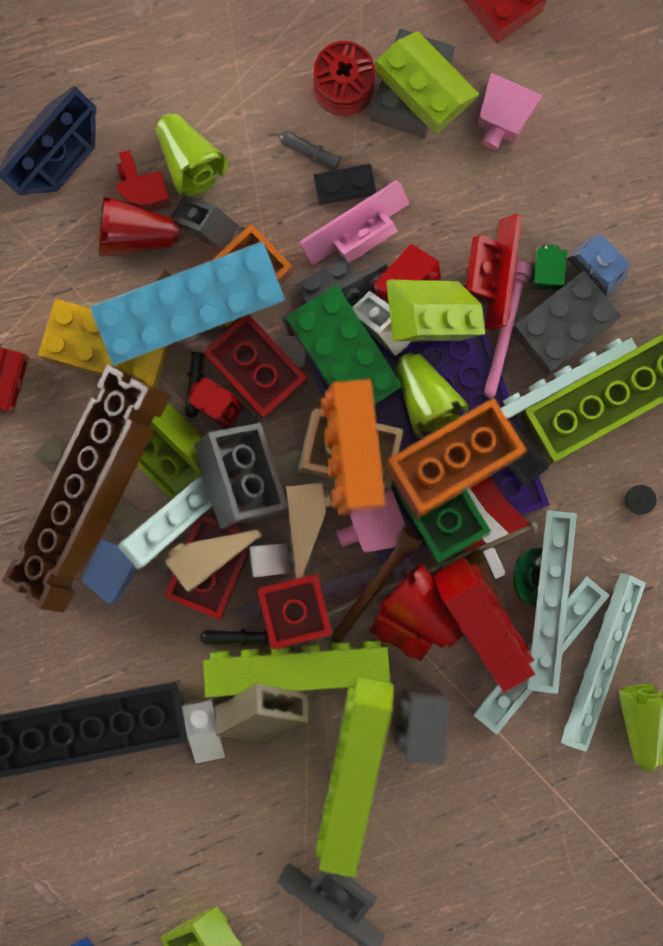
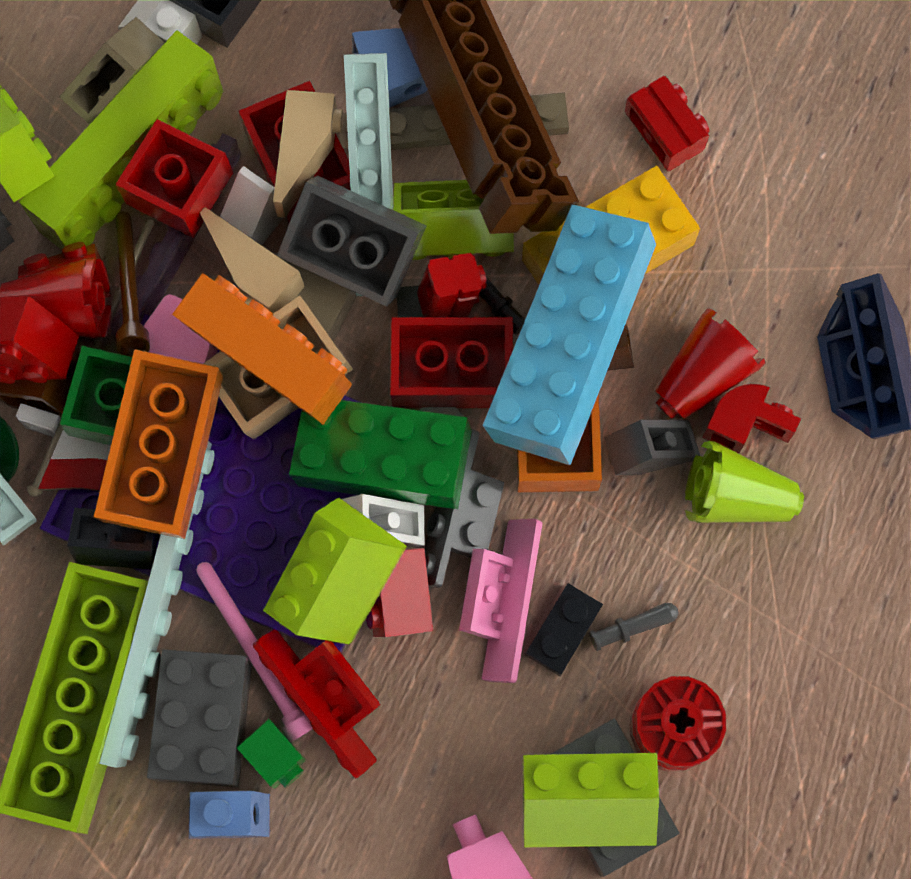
camera: 135 degrees right, 10 degrees down
(213, 637) = (222, 120): black piece -> none
(427, 395) = (259, 496): lime cone -> none

